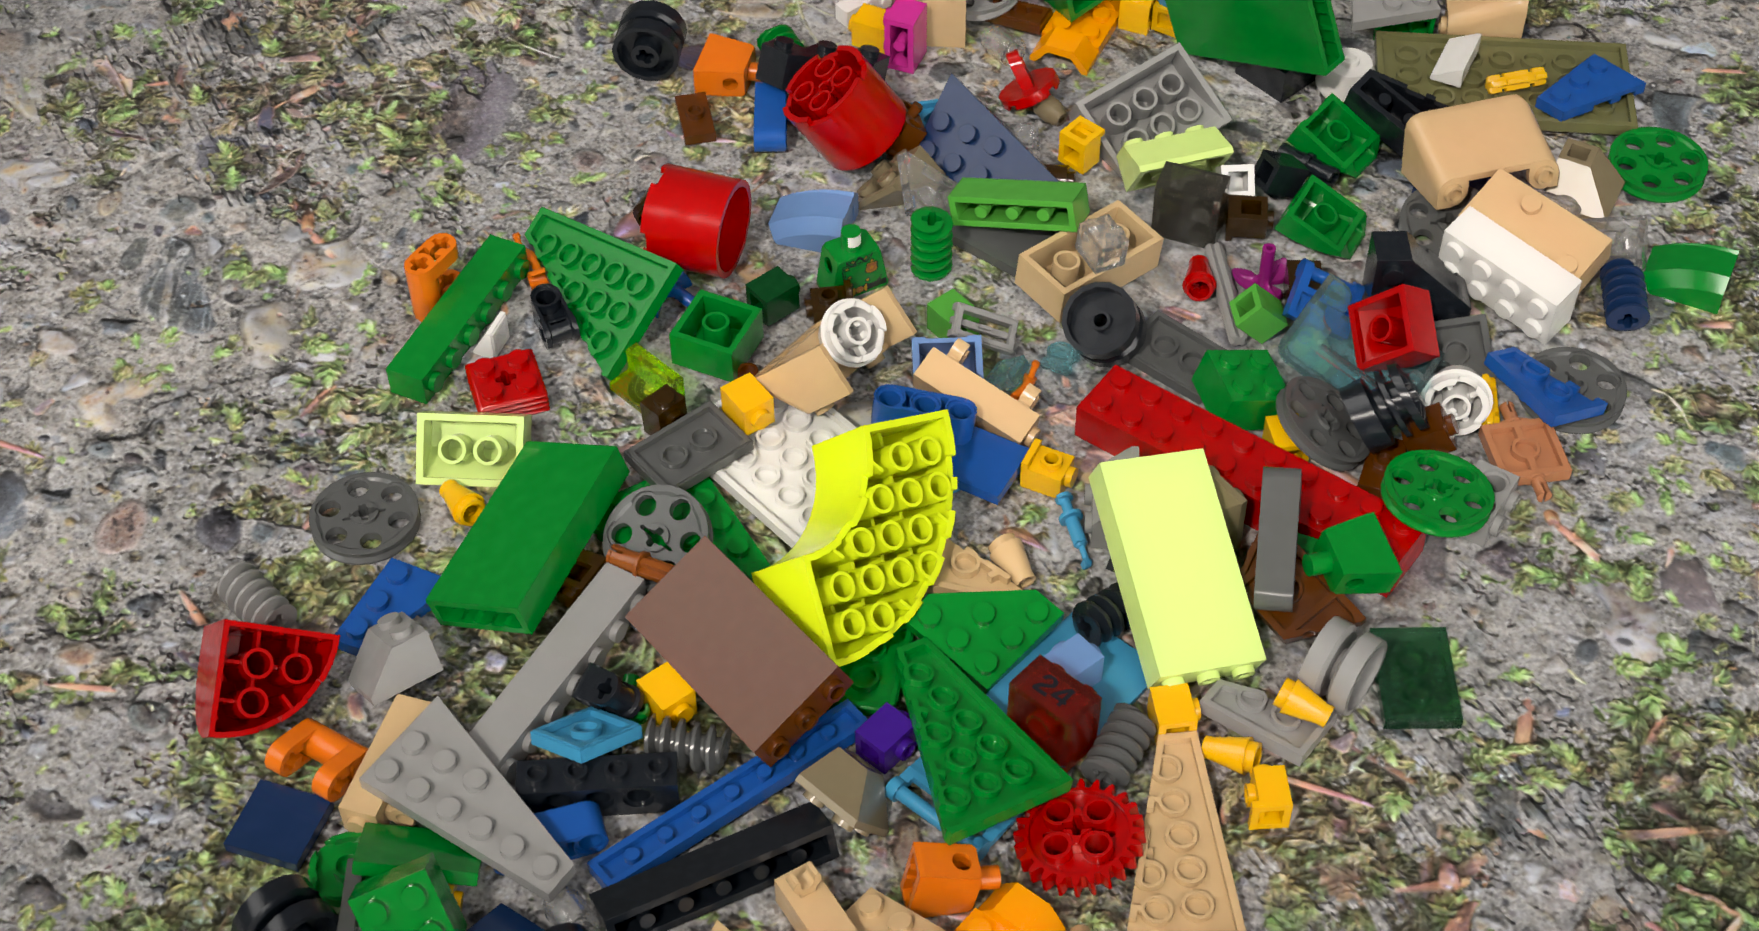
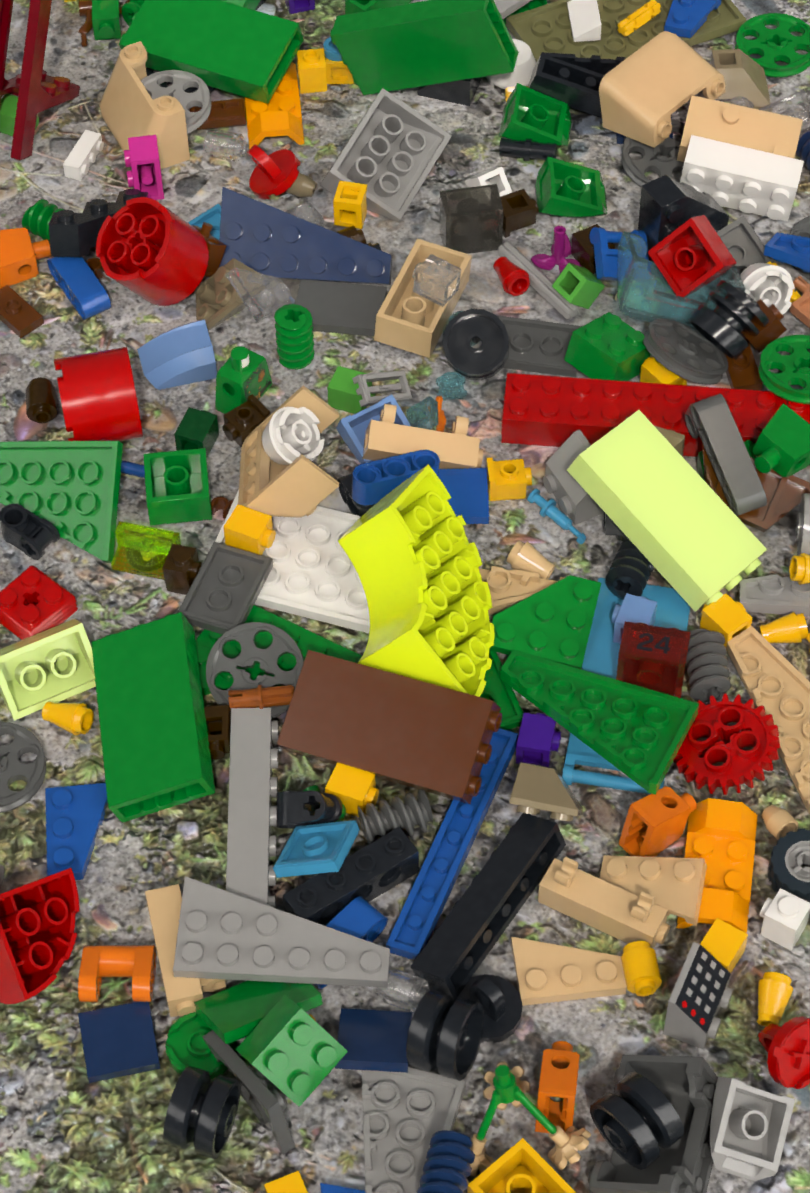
camera: 30 degrees left, 5 degrees up
(393, 658) = (119, 866): light grey slope -> none
(868, 27) = (108, 172): yellow brick -> none
(1019, 204) = (346, 274): bright green brick -> none
(1197, 148) = (423, 187): yellowish green slope -> none
(1279, 174) = (518, 165): black brick -> none

